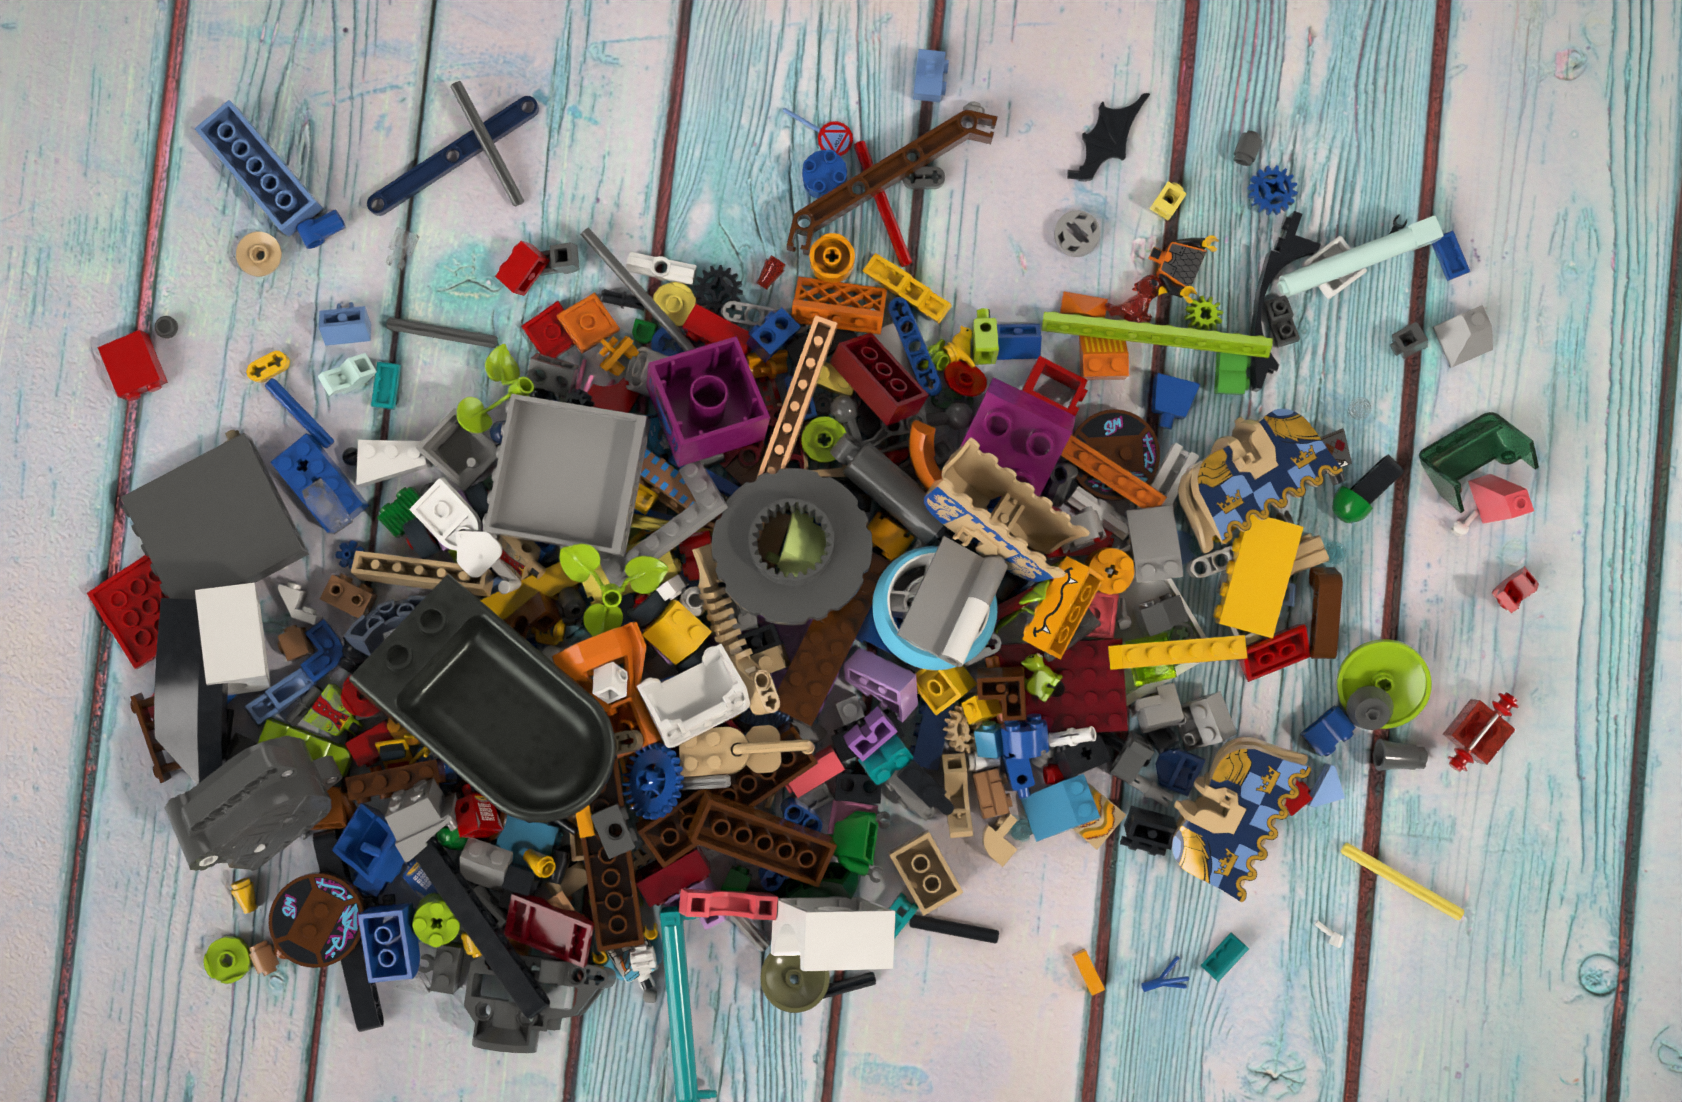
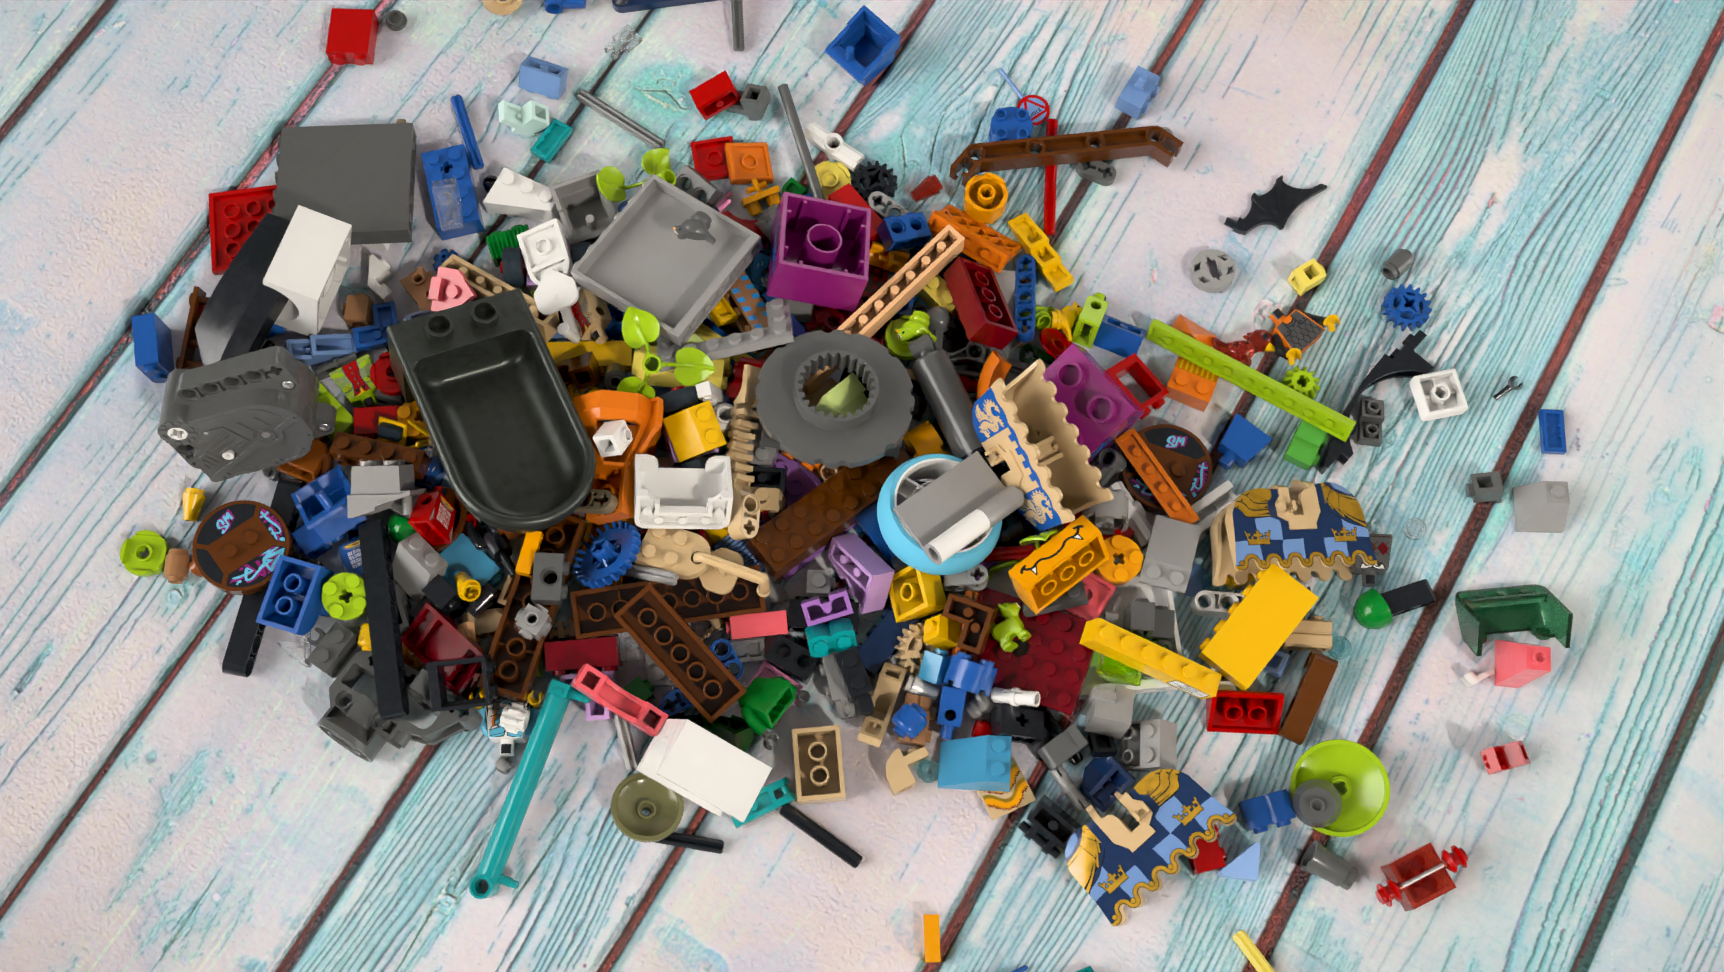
camera: 25 degrees right, 15 degrees down
(125, 771) = (152, 347): none -> blue brick
(270, 371) = (461, 85): yellow beam -> none
(374, 591) = (449, 289): none -> coral plate
(566, 972) = (437, 683): none -> black window
(582, 437) = (695, 228): none -> dark grey animal
(621, 299) = (787, 157): black axle -> none
(624, 867) = (537, 629): none -> light grey brick
(643, 153) = (864, 46): none -> blue piece
(829, 431) = (915, 327): none -> lime animal
(989, 801) = (909, 720): none -> blue head
(1410, 238) = (1526, 395): light aqua brick -> none

